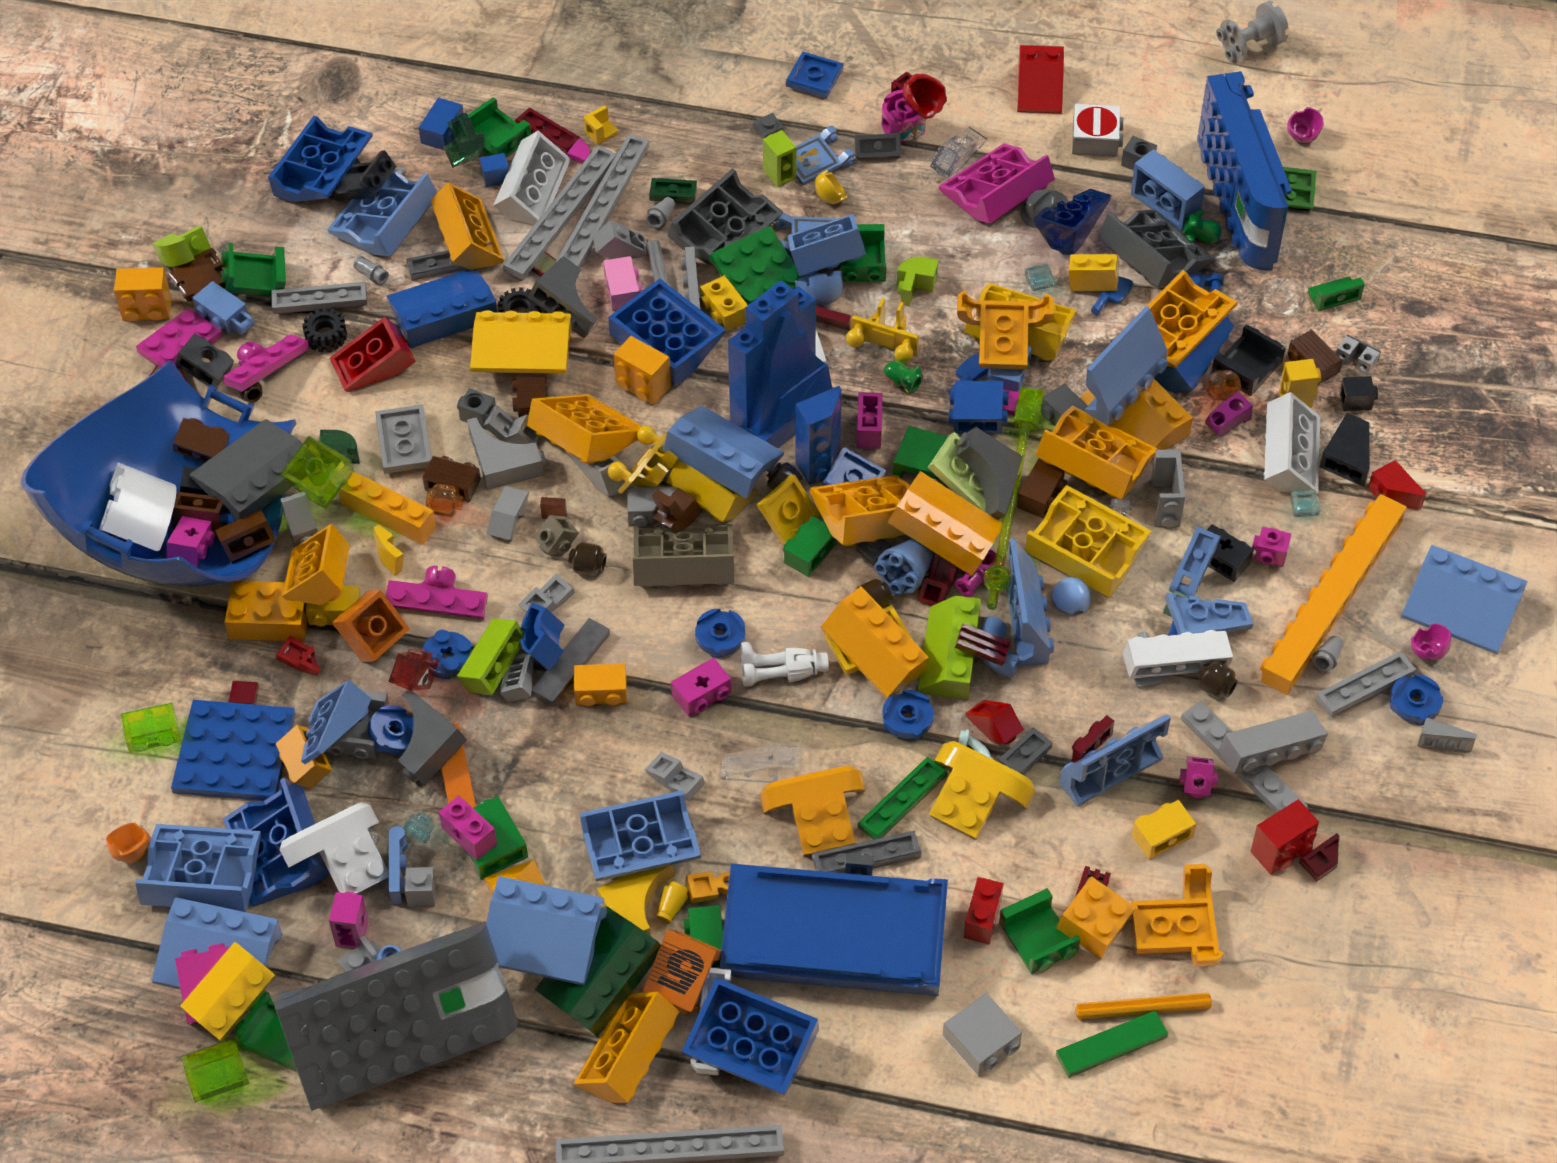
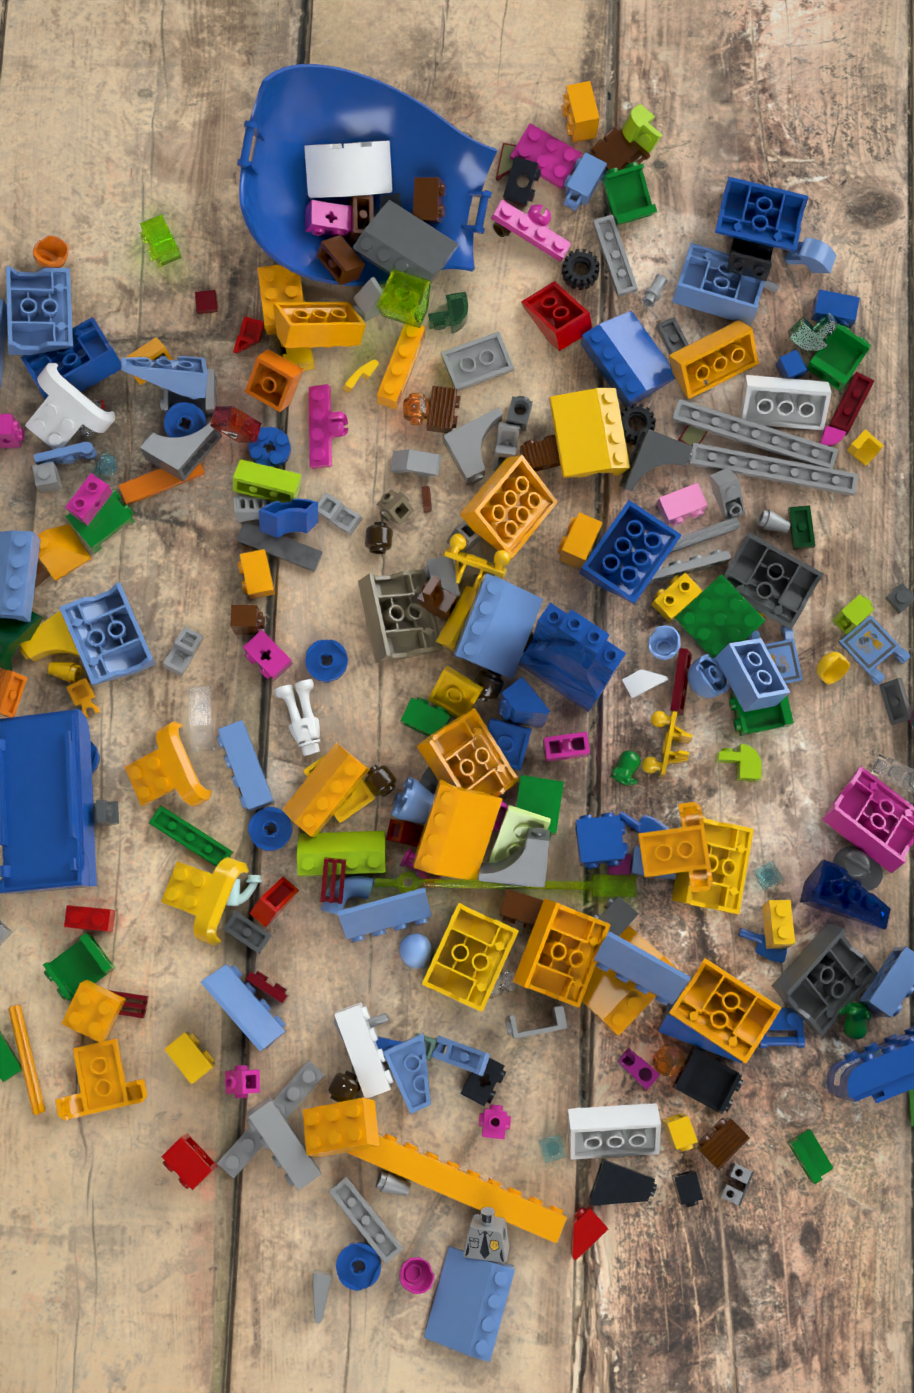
camera: 75 degrees right, 25 degrees up
(232, 750) = (154, 305): blue plate -> none
(382, 127) = (814, 254): none -> medium blue brick
(655, 695) = (246, 619): none -> reddish brown brick
(706, 926) = (38, 701): green brick -> none
(830, 726) = (245, 765): none -> medium blue brick
(885, 852) = (134, 817): flat silver tile -> none
(1262, 679) = (340, 1127): none -> light orange brick
(1322, 859) = (187, 1198): dark red tile -> none
(1395, 567) = (487, 1237): none -> light grey torso

